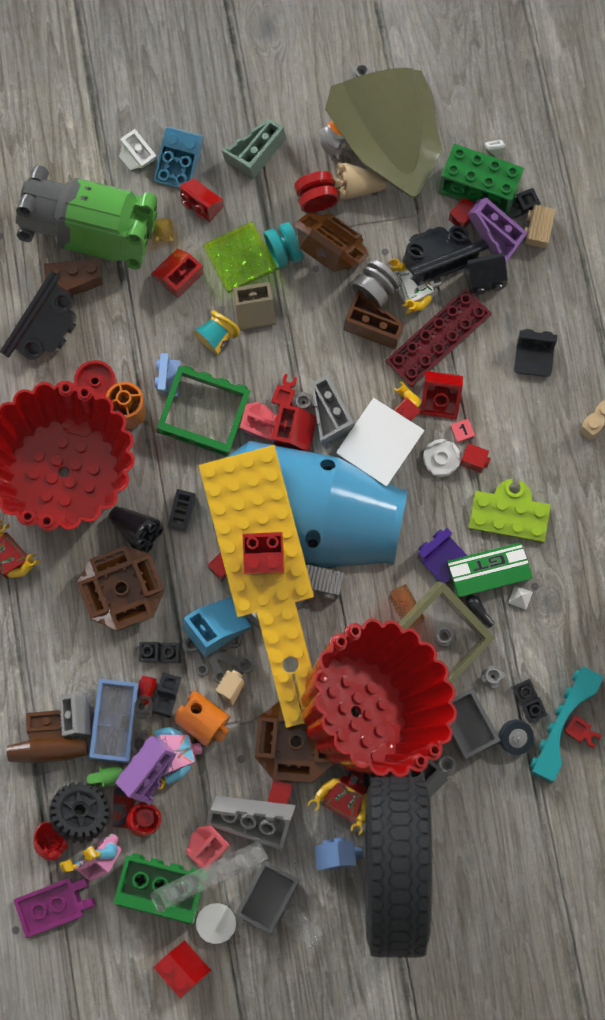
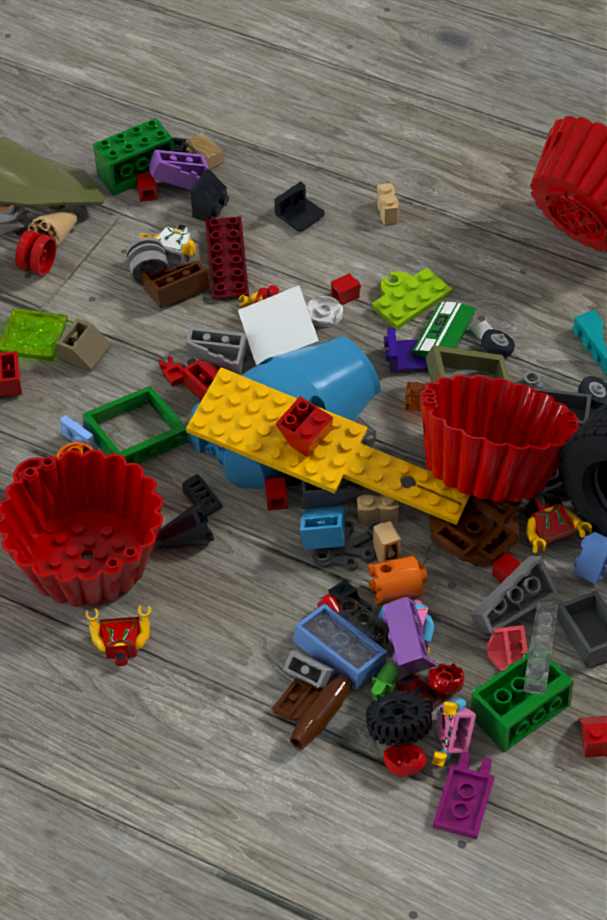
camera: 50 degrees left, 25 degrees down
(117, 568) = (230, 565): reddish brown piece -> none
(159, 652) = (308, 584): black slope -> none
(216, 332) = (79, 379): hat -> none
(216, 923) = (587, 685): white tile -> none
(258, 421) = (180, 402): coral slope -> none
(258, 650) = (377, 508): none -> tan brick
(283, 245) = (55, 294): teal wheel -> none
(330, 241) = (87, 263): reddish brown piece -> none
(440, 253) = (164, 211): black brick -> none
(441, 395) = (275, 272): red slope -> none
(462, 430) = (315, 286): coral tile -> none
(509, 622) = (497, 343): none -> black wheel
(529, 700) = (570, 372): black slope -> none

